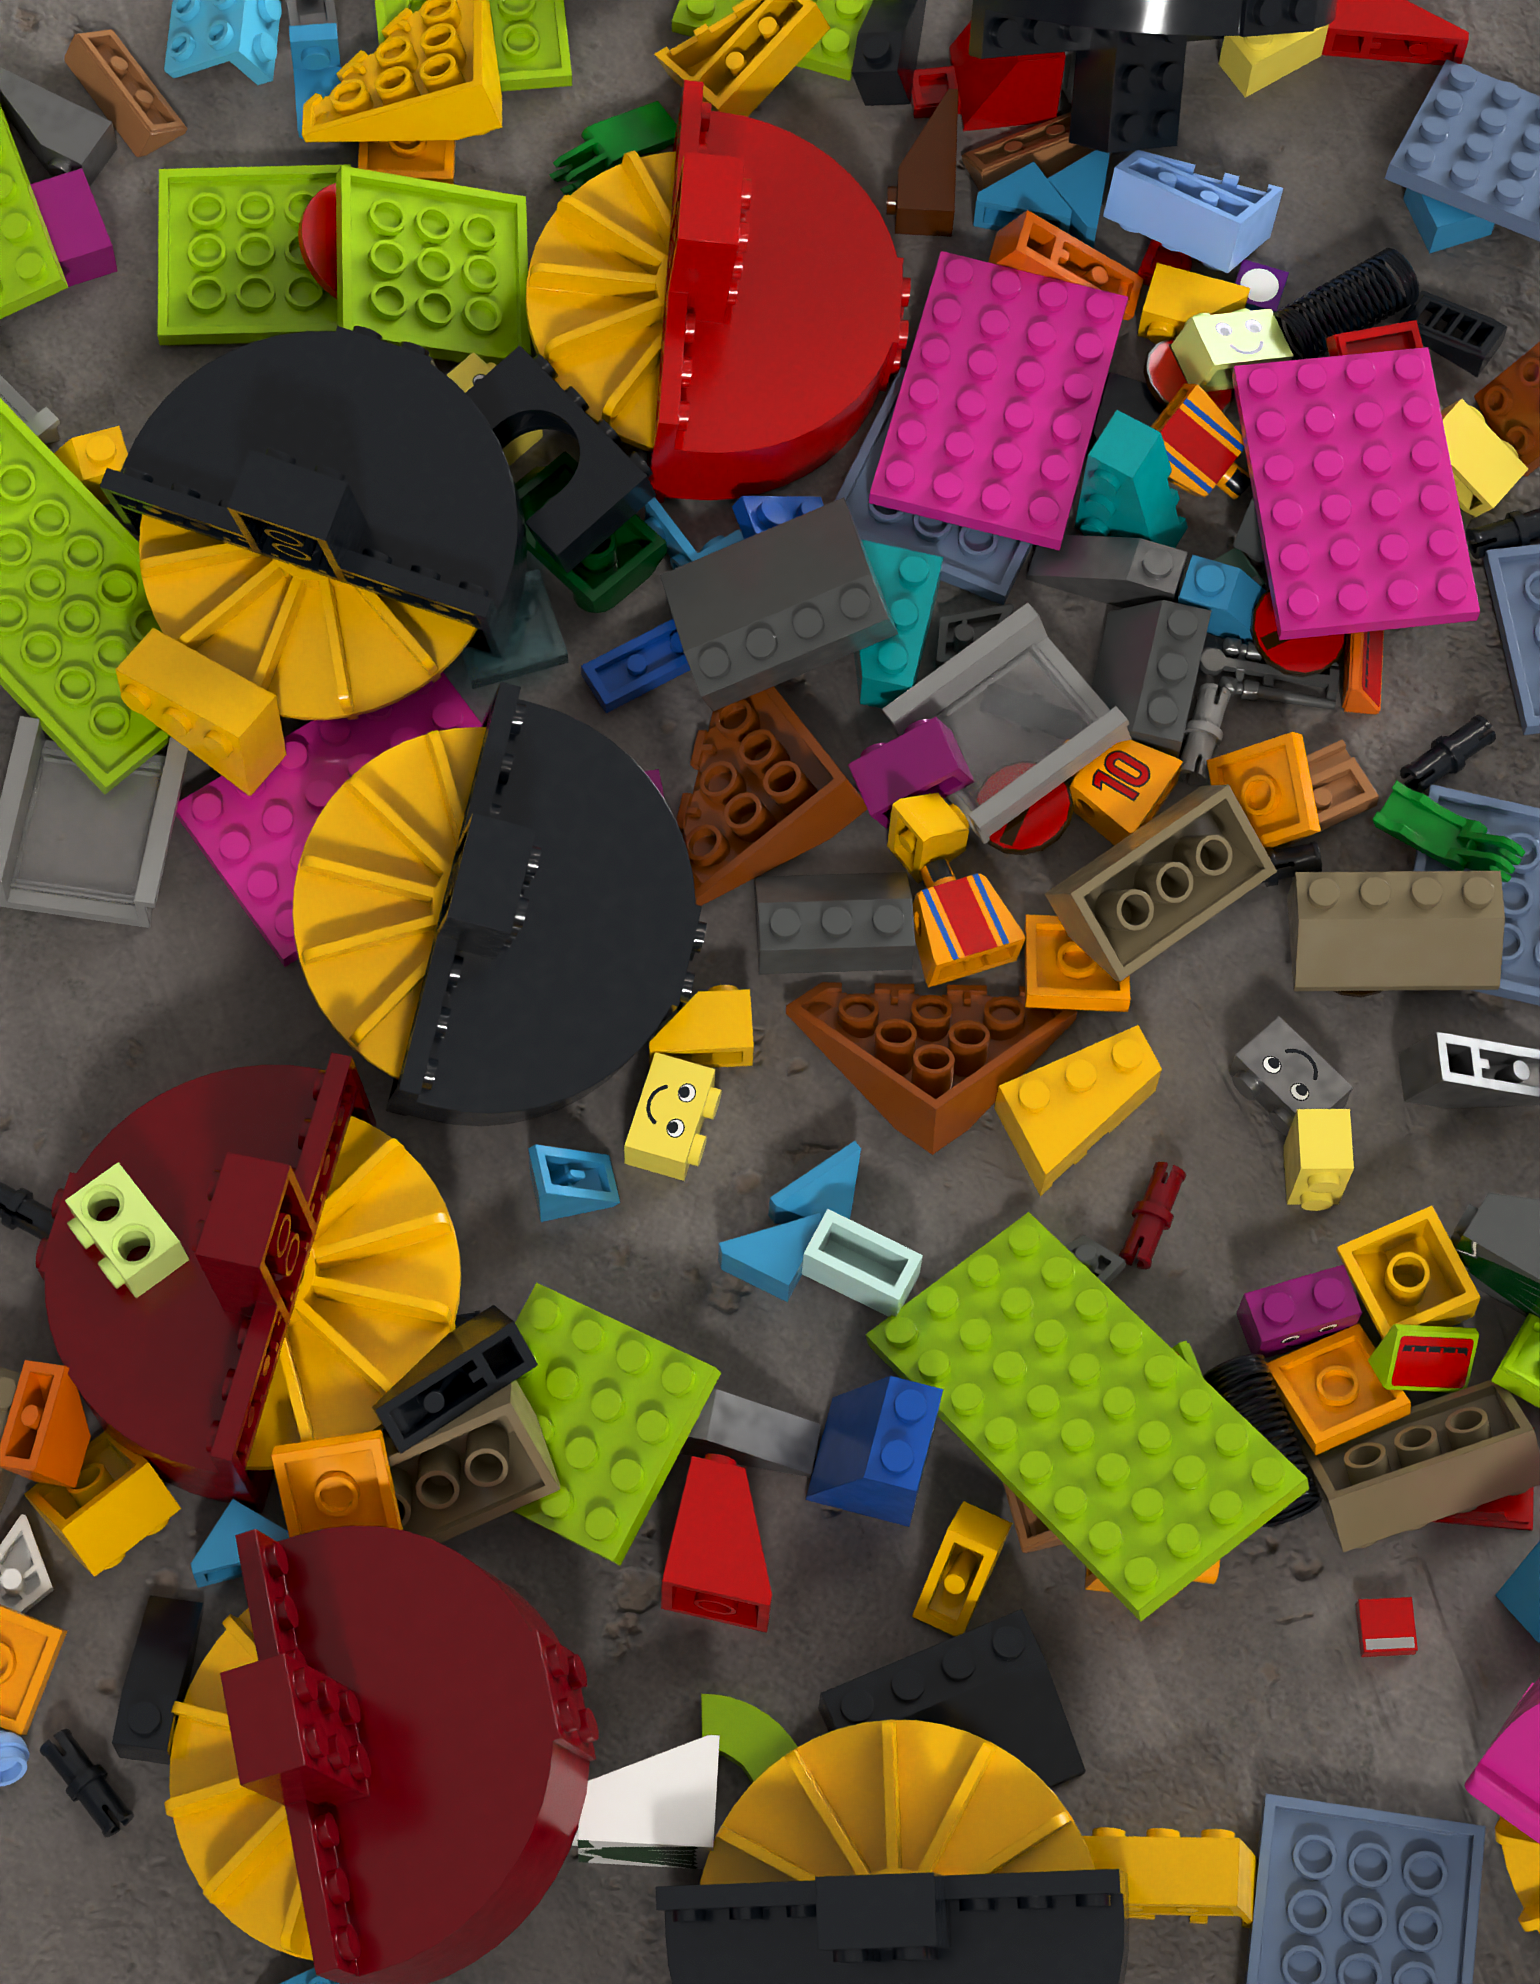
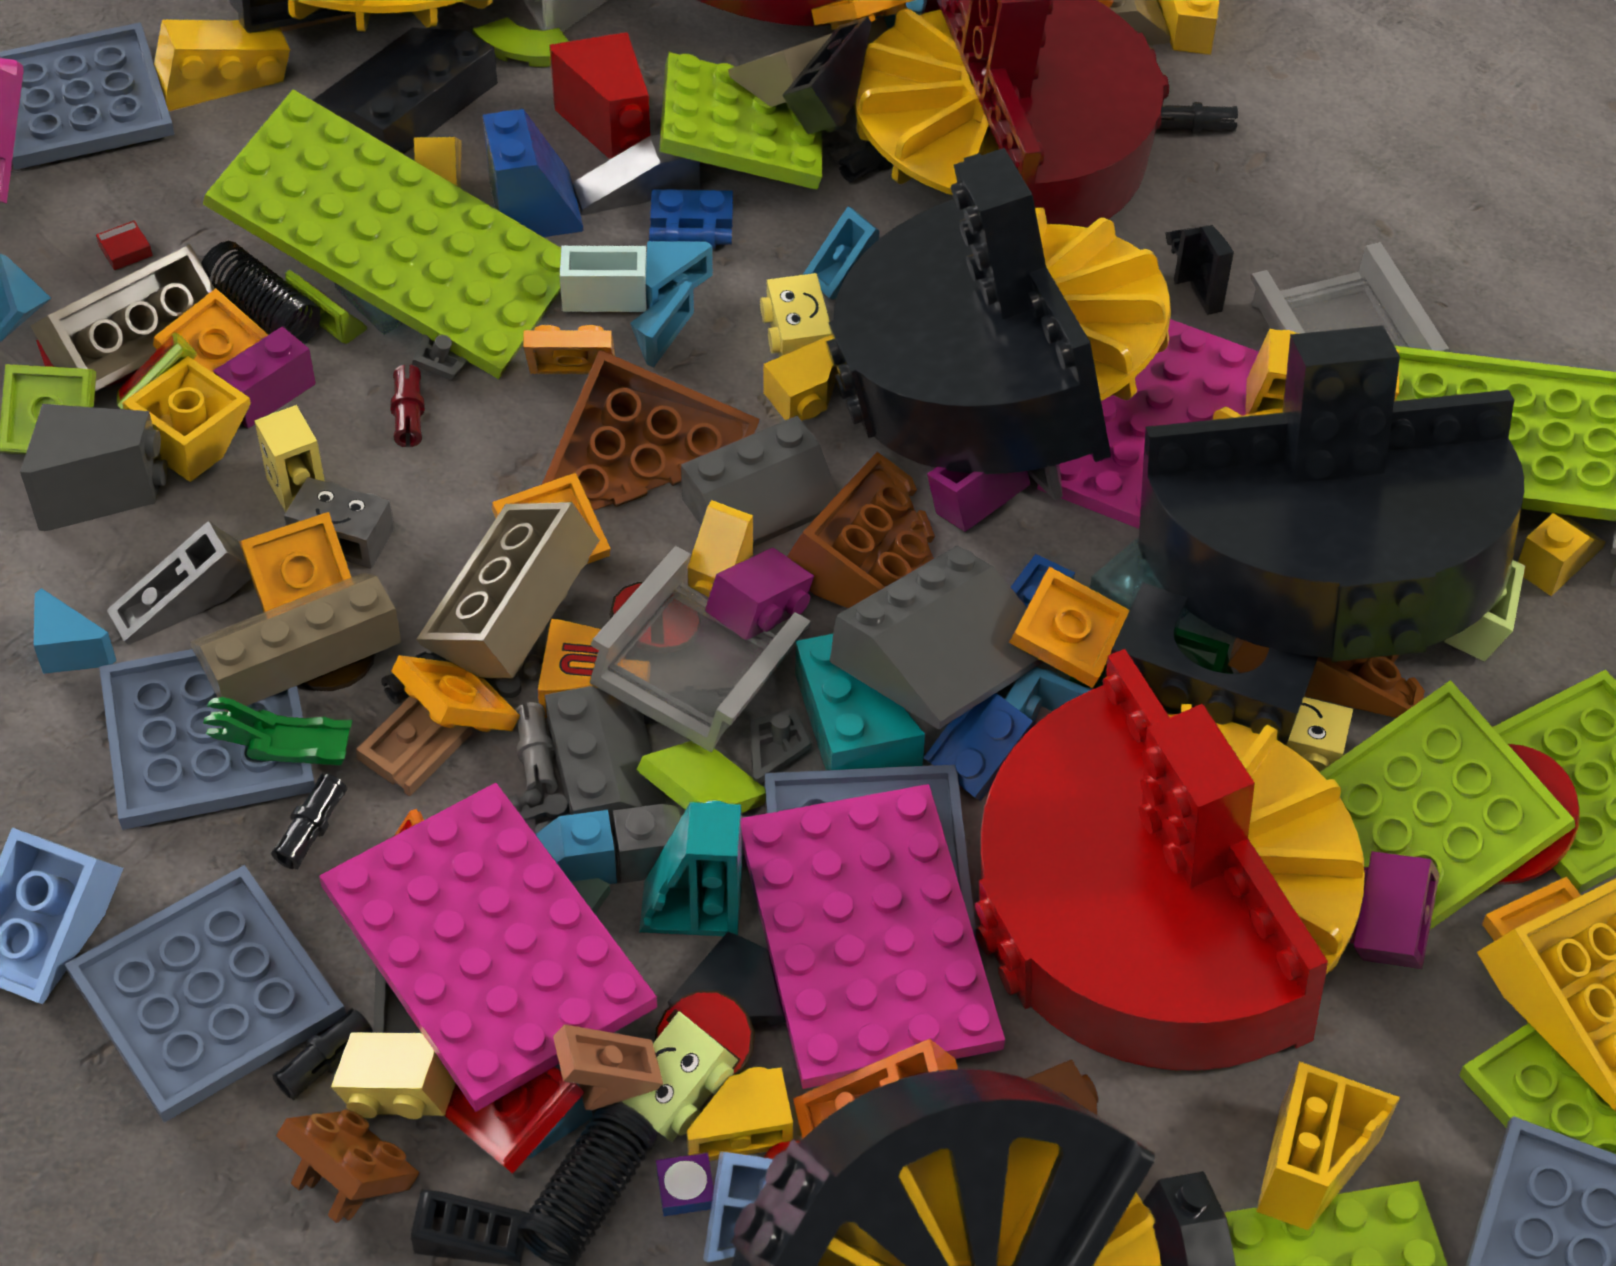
camera: 155 degrees right, 15 degrees down
(131, 1227) = (1099, 46): yellowish green brick -> none
(191, 960) = (1204, 261): none -> black slope
(527, 200) = (1396, 910): none -> magenta brick
(640, 129) = (1371, 1032): green arm -> none
(649, 559) = (1070, 627): none -> light orange plate
(720, 1354) = (692, 216): none -> blue plate
(955, 1163) = (565, 351): none -> light orange plate
(961, 925) = (653, 515): torso -> none
(1074, 603) = (697, 775): none -> lime tile
(1075, 1101) = (501, 439): yellow wedge -> none
(1201, 445) = (676, 956): torso -> none
(1300, 335) = (606, 1064): none -> nougat slope
(1360, 1023) = (295, 560): none -> light orange plate

